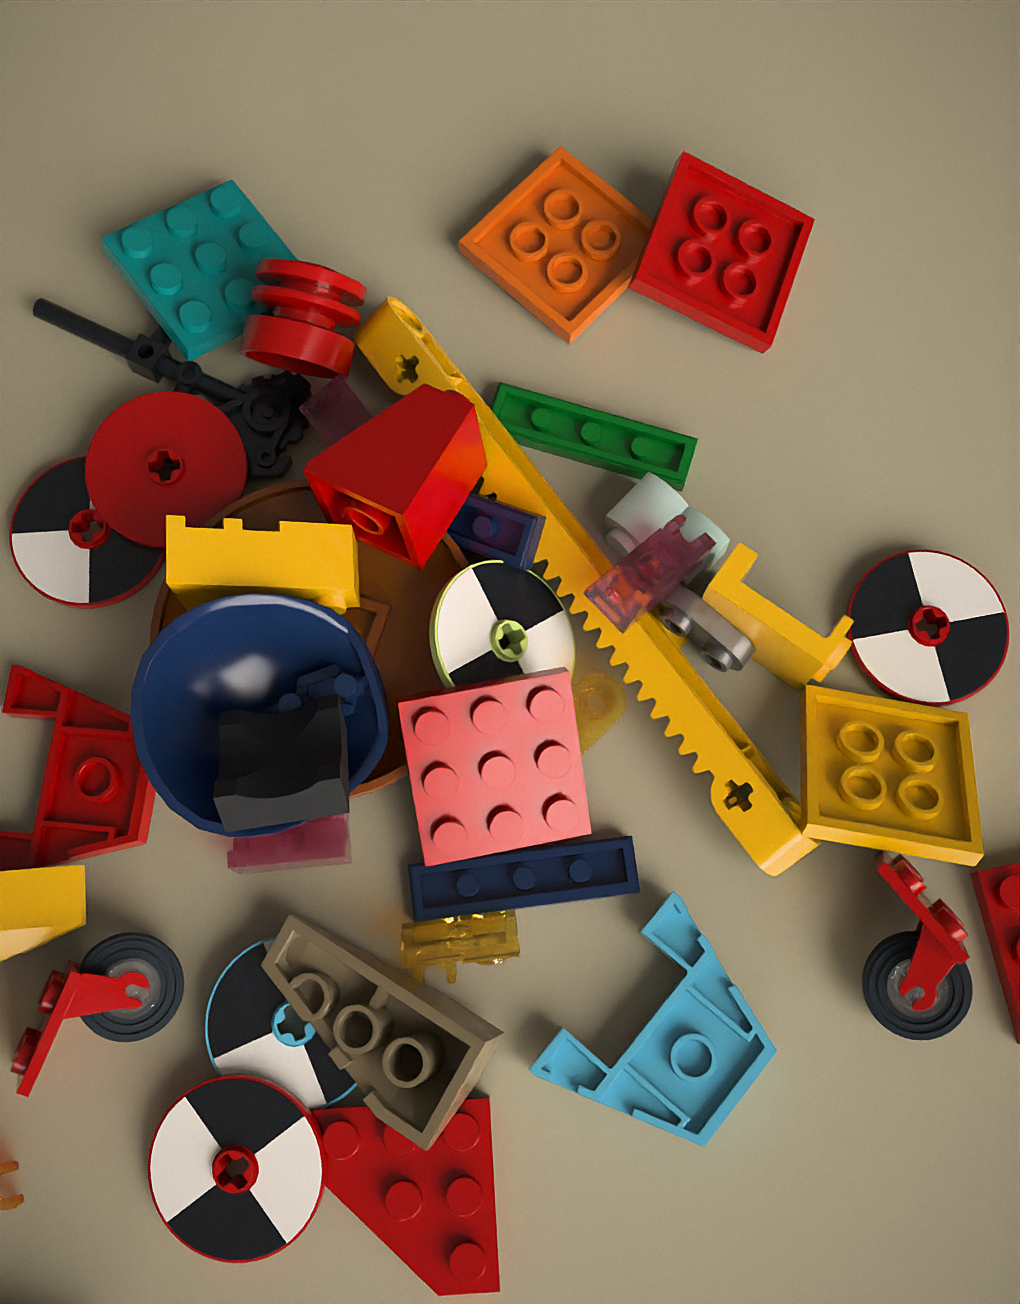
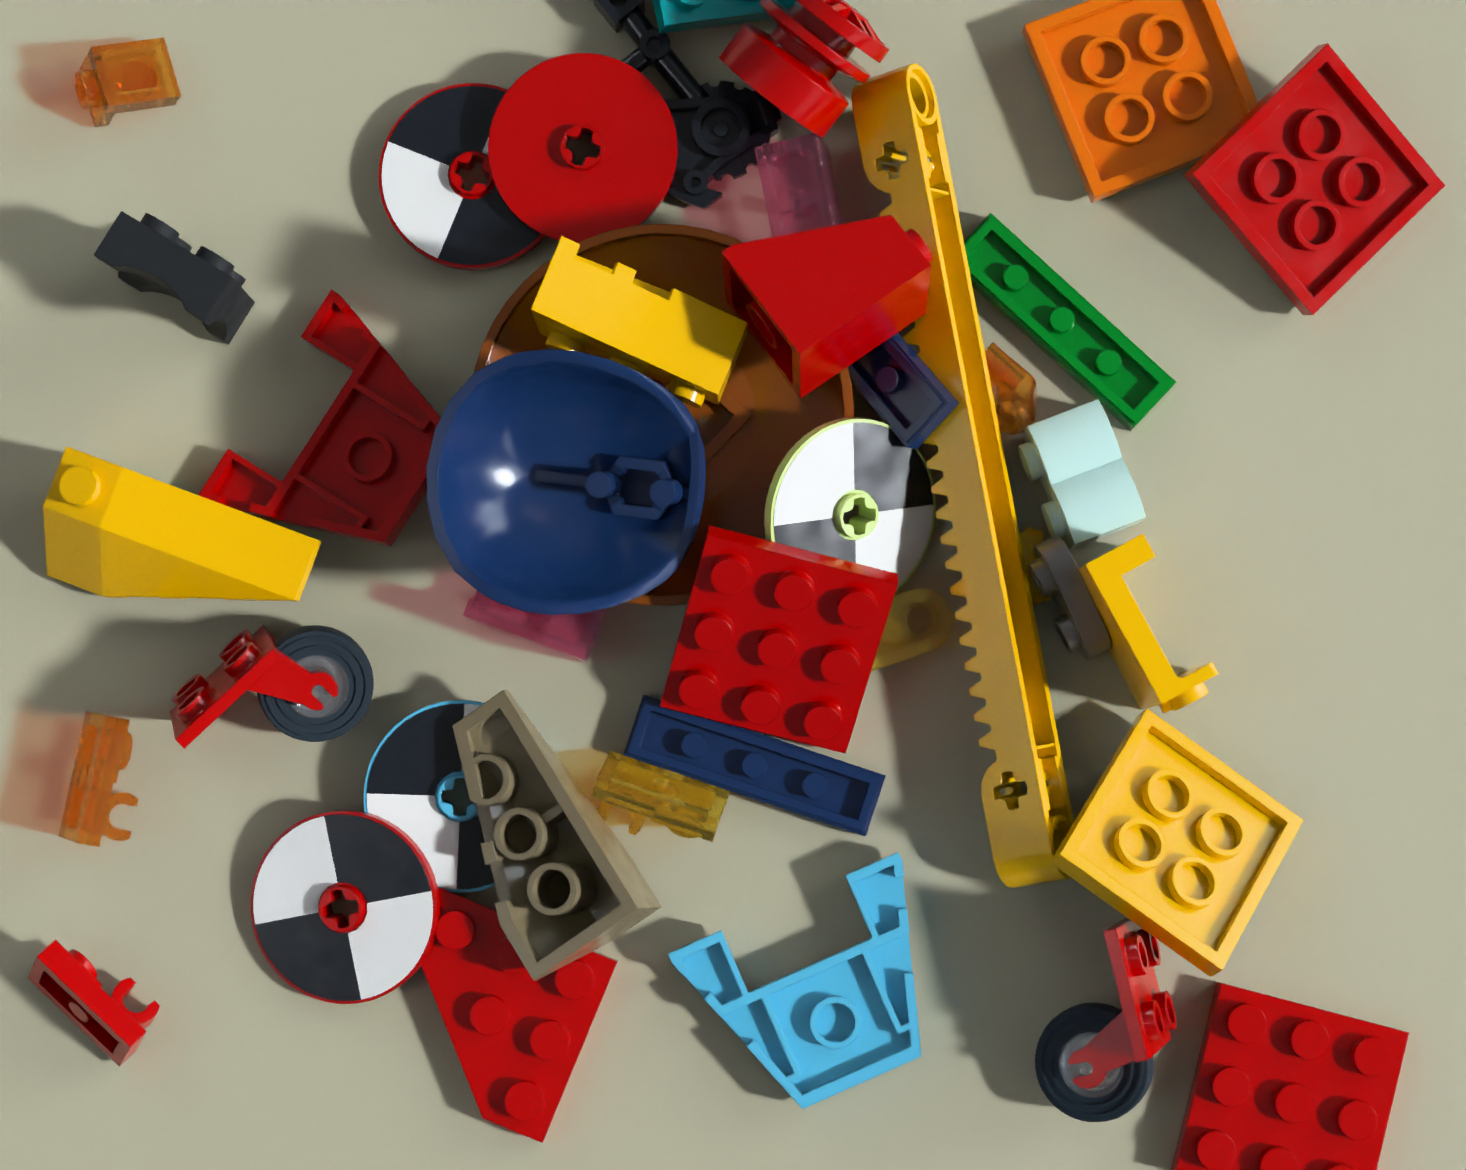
camera: 25 degrees right, 10 degrees up
(282, 765) = (565, 546): black brick -> none
(582, 500) = (1015, 391): none -> clear orange arm
(648, 574) = (1032, 518): clear pink hinge -> none
(908, 663) = (1355, 682): piece -> none

